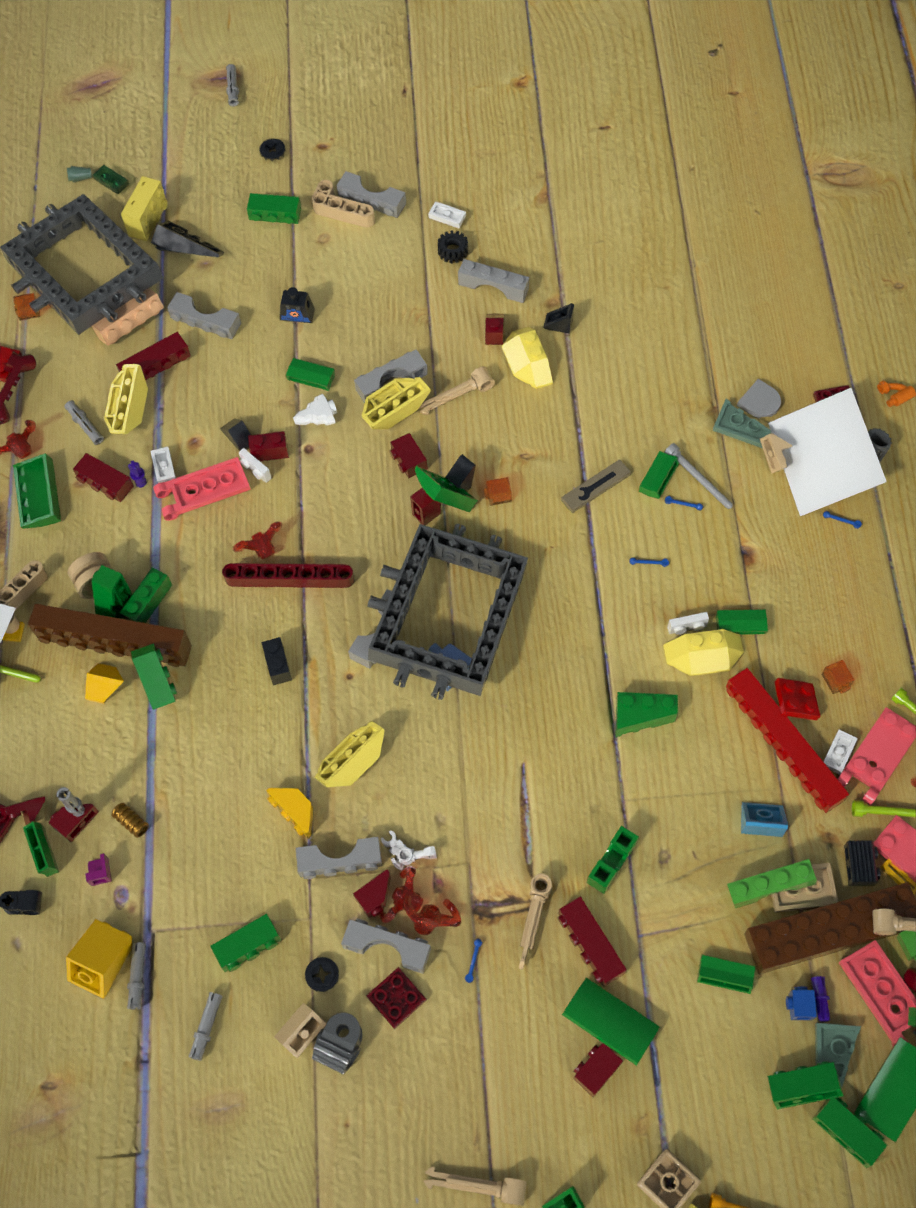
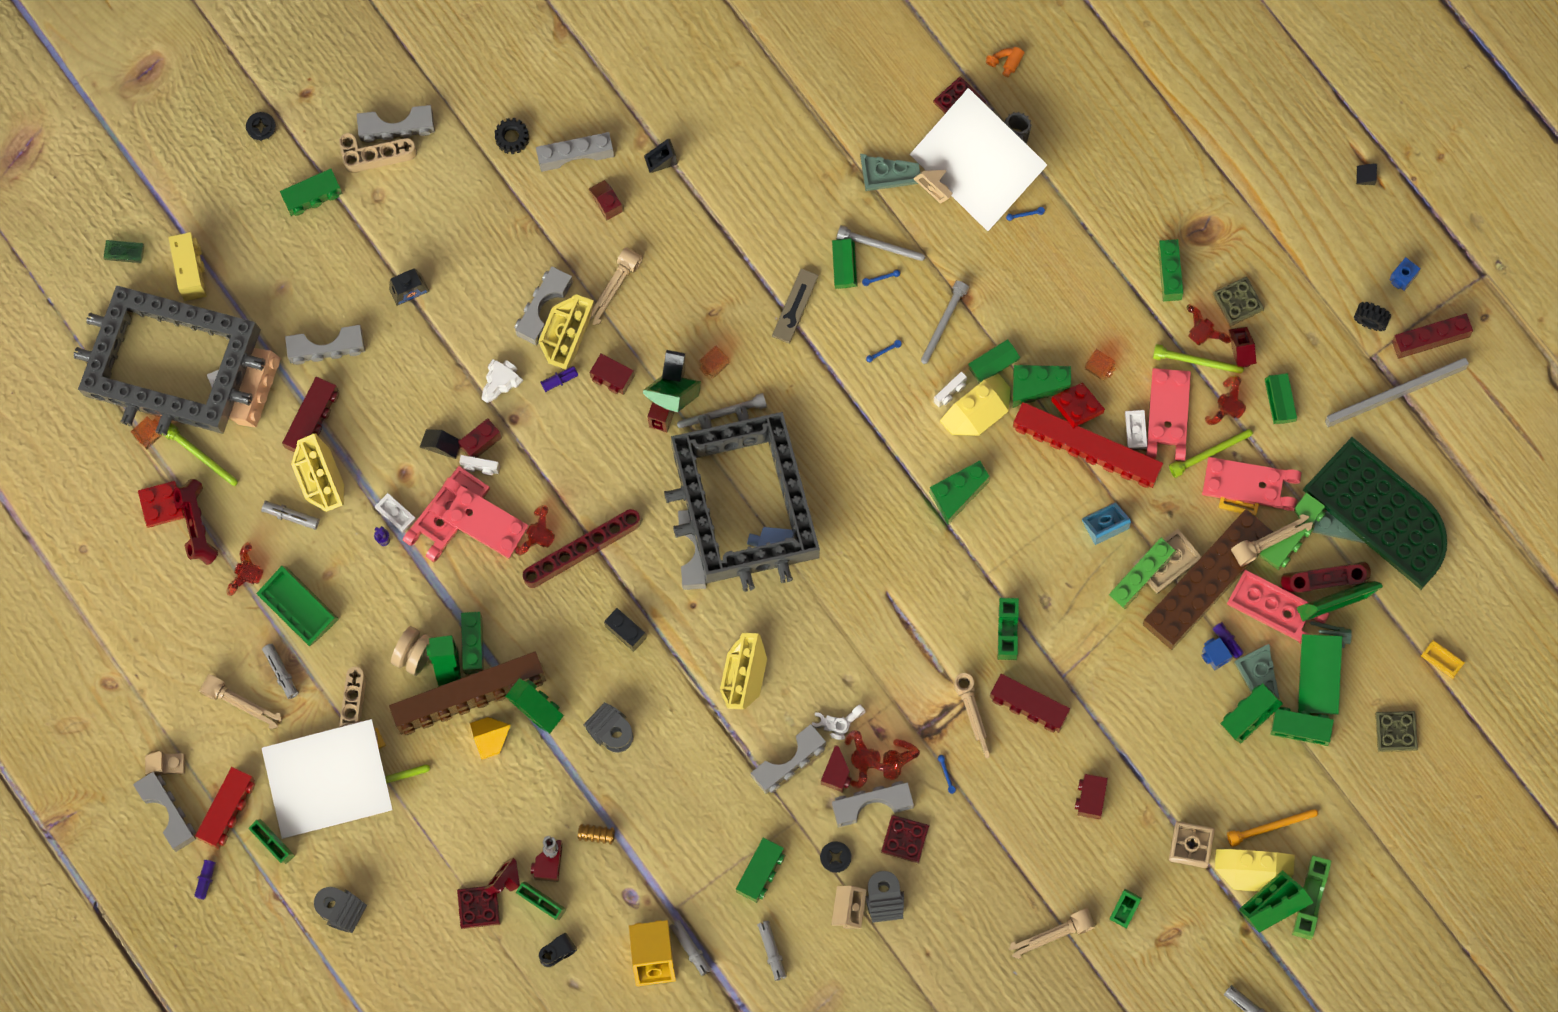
camera: 30 degrees left, 10 degrees up
(46, 317) = (173, 434): none -> lime piece
(78, 173) = (86, 263): sand green cone -> none
(98, 871) = (599, 889): magenta panel -> none
(103, 478) = (349, 557): dark red brick -> none
(174, 238) = (239, 281): black wedge -> none
(204, 730) = (605, 723): none -> dark grey piece
(227, 512) = (486, 524): none -> coral hinge
(232, 89) = (179, 90): light grey pin -> none
(294, 808) = (725, 742): yellow slope -> none
(310, 374) = (466, 345): green piece -> none
(363, 436) = (559, 378): none -> dark purple axle
(447, 214) = (483, 103): white plate -> none
(513, 542) = (757, 402): none -> light grey piece
(527, 358) = (655, 213): light yellow wedge -> none
(611, 1021) = (1081, 754): green slope -> none
(726, 974) = (1146, 665): green piece -> none
(746, 547) = (959, 290): none -> light grey piece
(760, 400) = (891, 136): light grey tile -> none
(772, 660) = (1038, 382): none -> green wedge
(861, 863) = (1202, 514): black brick -> none

